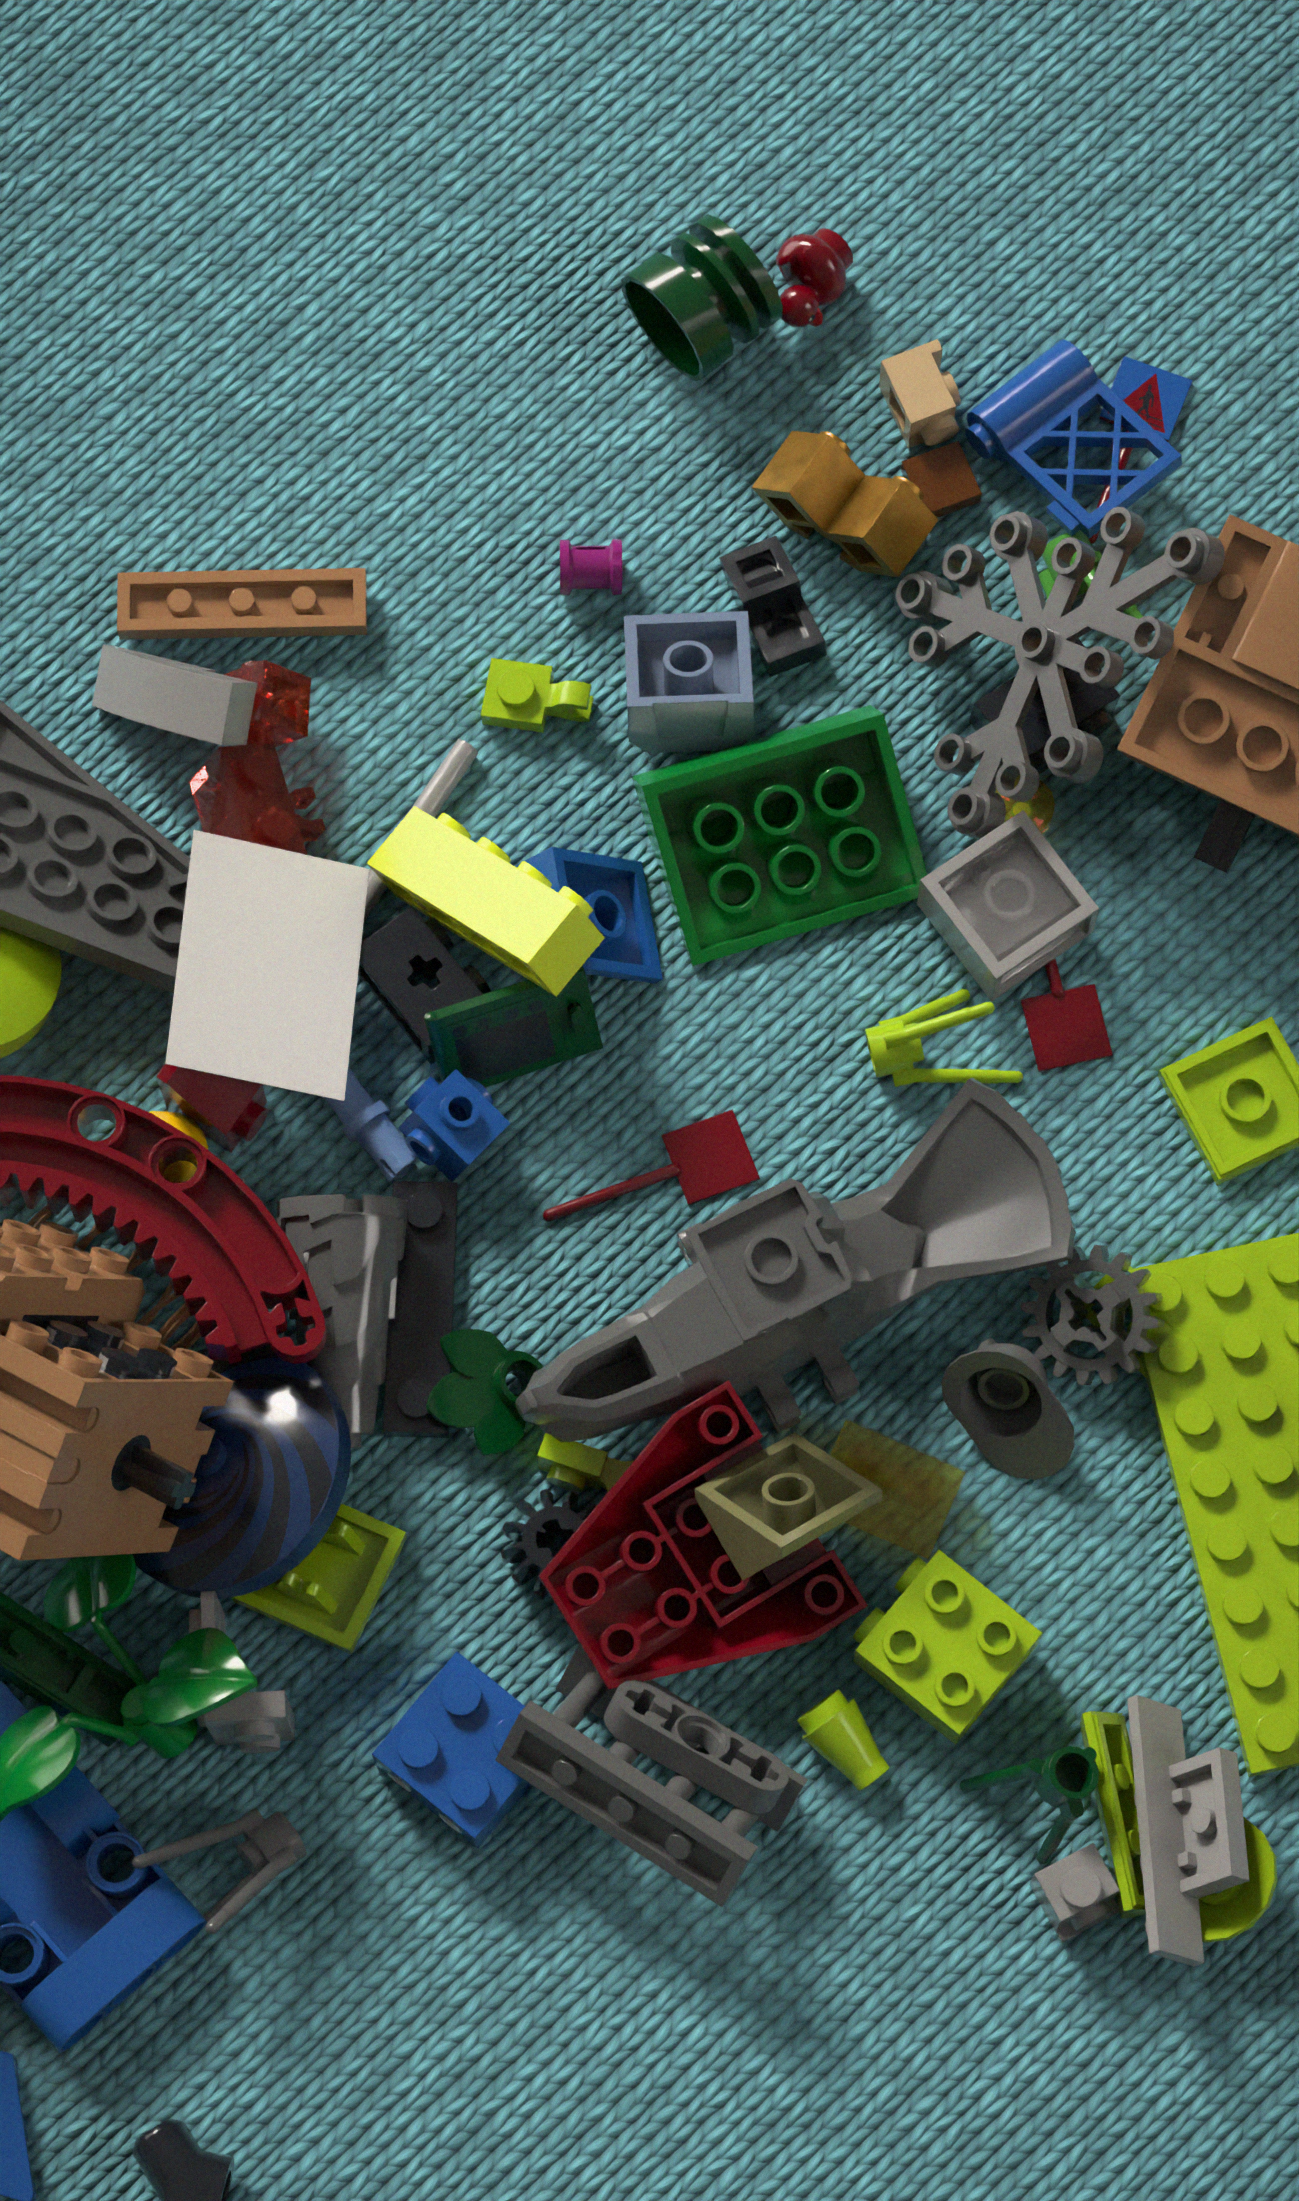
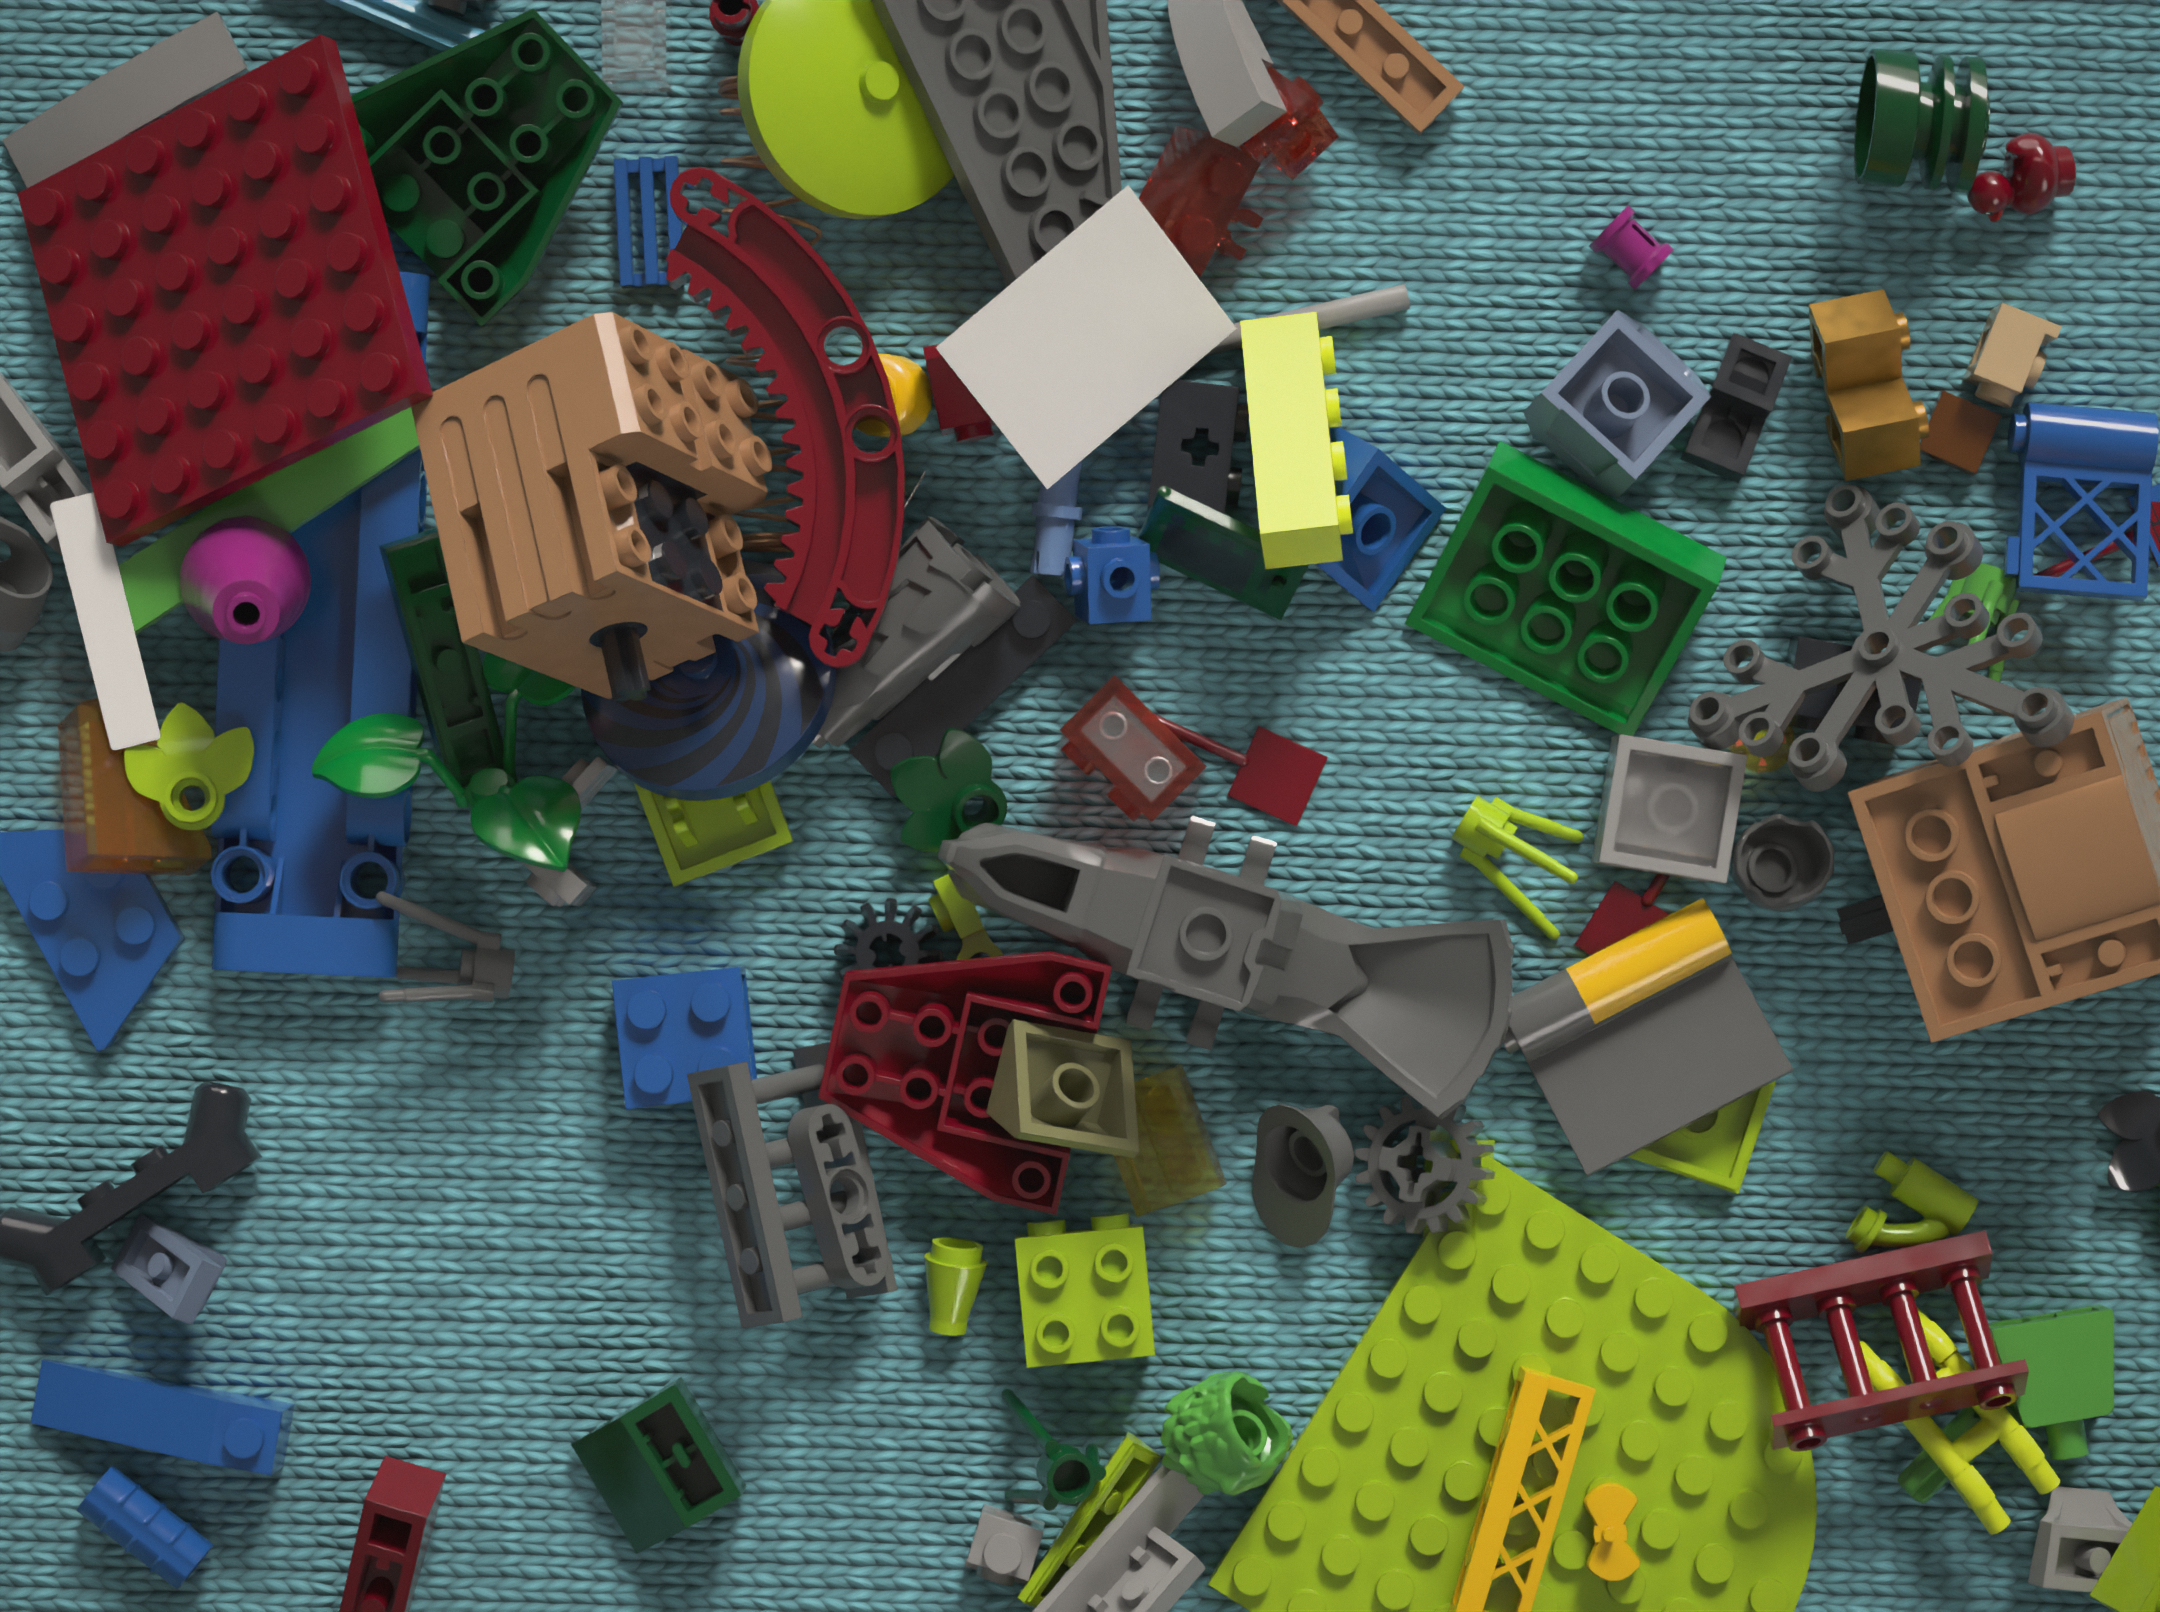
camera: 45 degrees right, 15 degrees up
(524, 695) = (1485, 297): lime plate -> none
(588, 1224) = (1131, 750): none -> piece
(762, 2089) = (659, 1466): none -> dark green slope
(1125, 867) = (1782, 863): none -> dark grey hair
(1150, 1645) = (1224, 1434): none -> bright green hair
(1154, 1078) = (1645, 1037): none -> dark grey door

